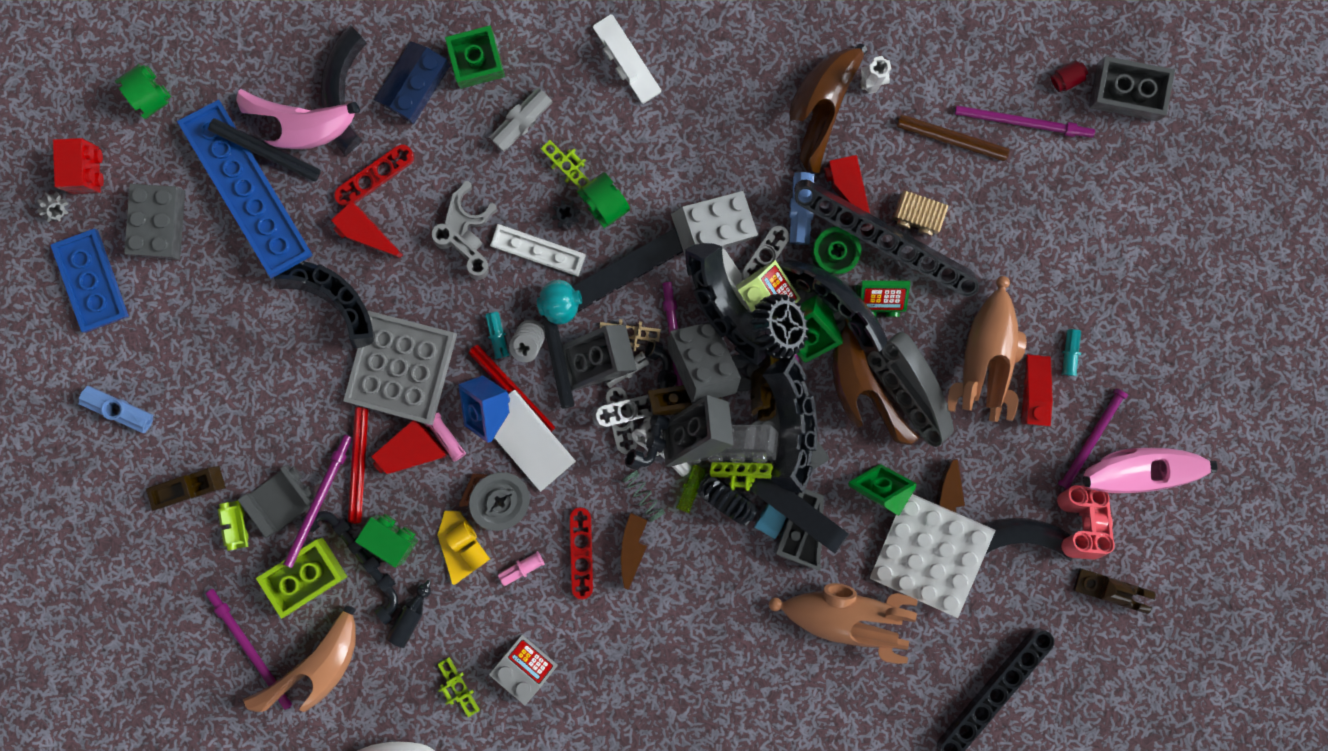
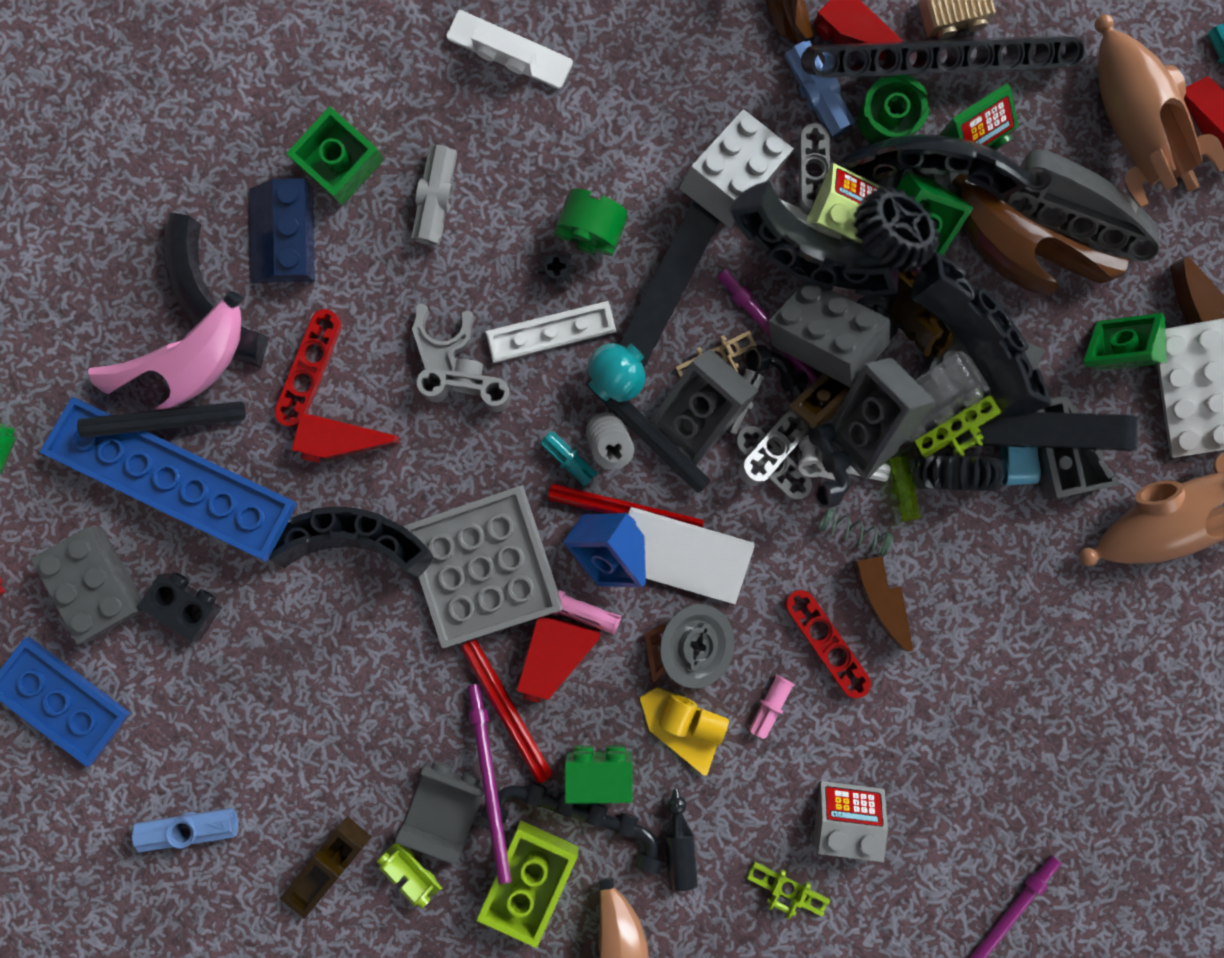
camera: 30 degrees left, 0 degrees up
(196, 275) = (178, 613): none -> black brick
(571, 153) = (513, 207): lime piece -> none

